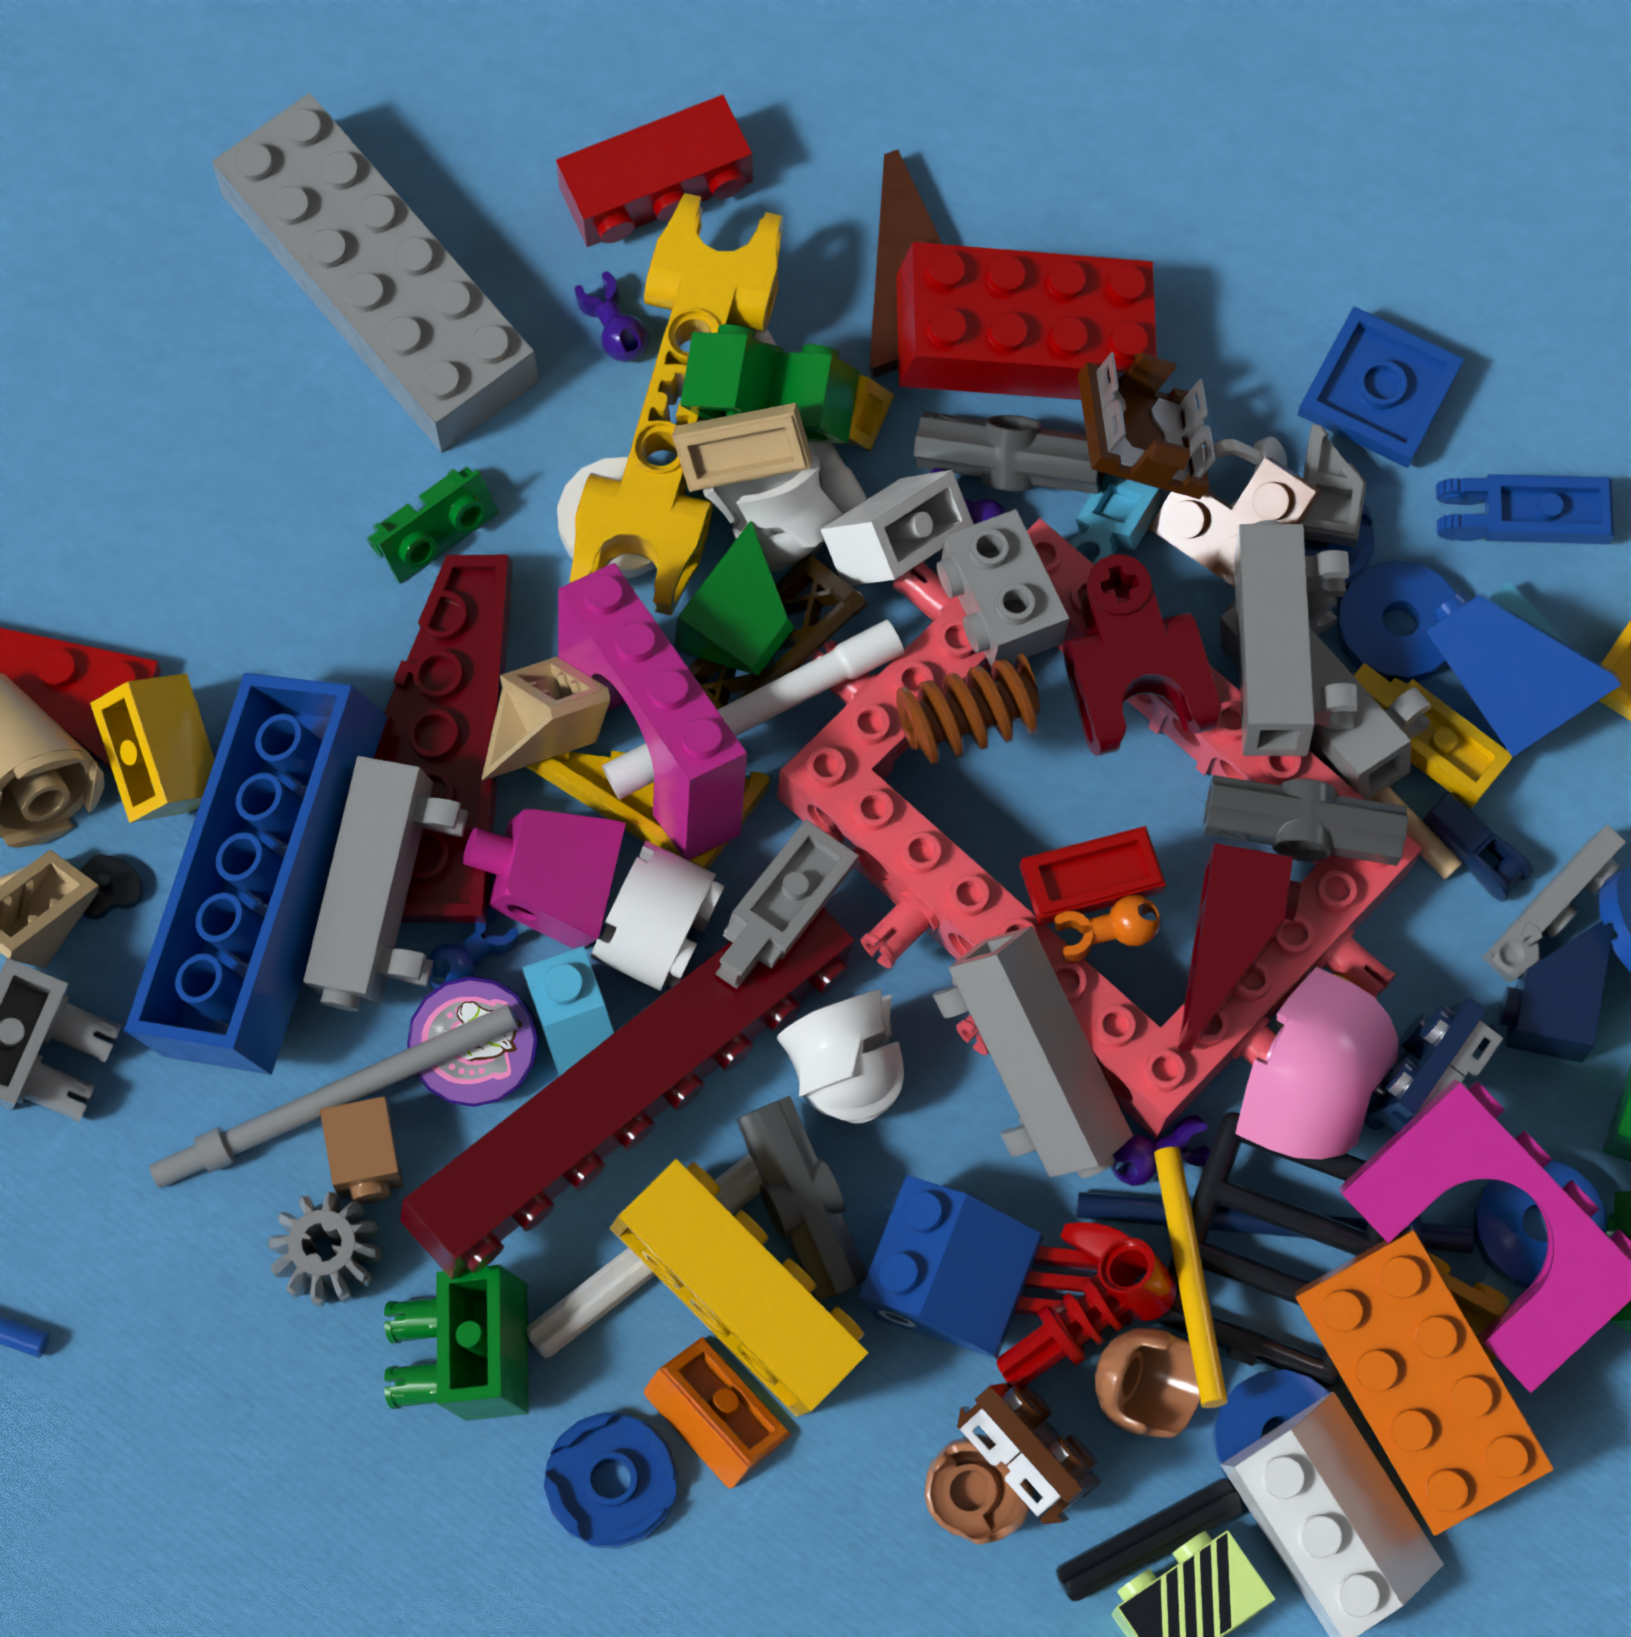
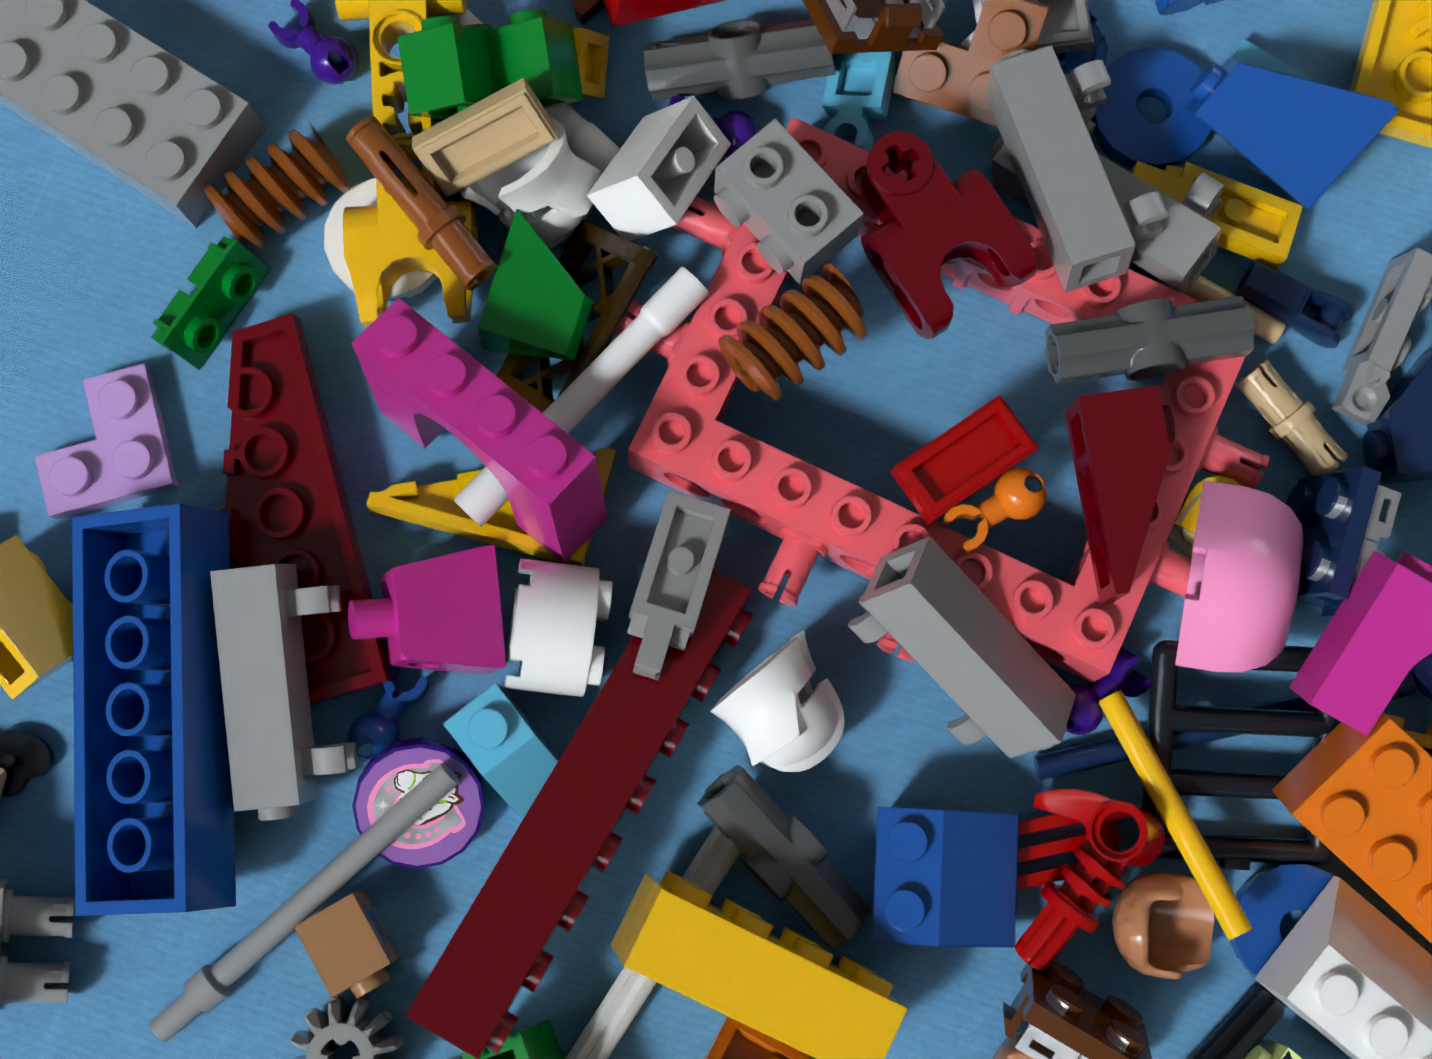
camera: 20 degrees left, 10 degrees up
(304, 642) = (126, 458): none -> lavender plate
(533, 437) = (278, 187): none -> dark orange piece
(544, 715) = (377, 463): tan slope -> none
(673, 511) = (438, 224): none -> dark orange pin
(1434, 948) = (1291, 419): none -> tan pin

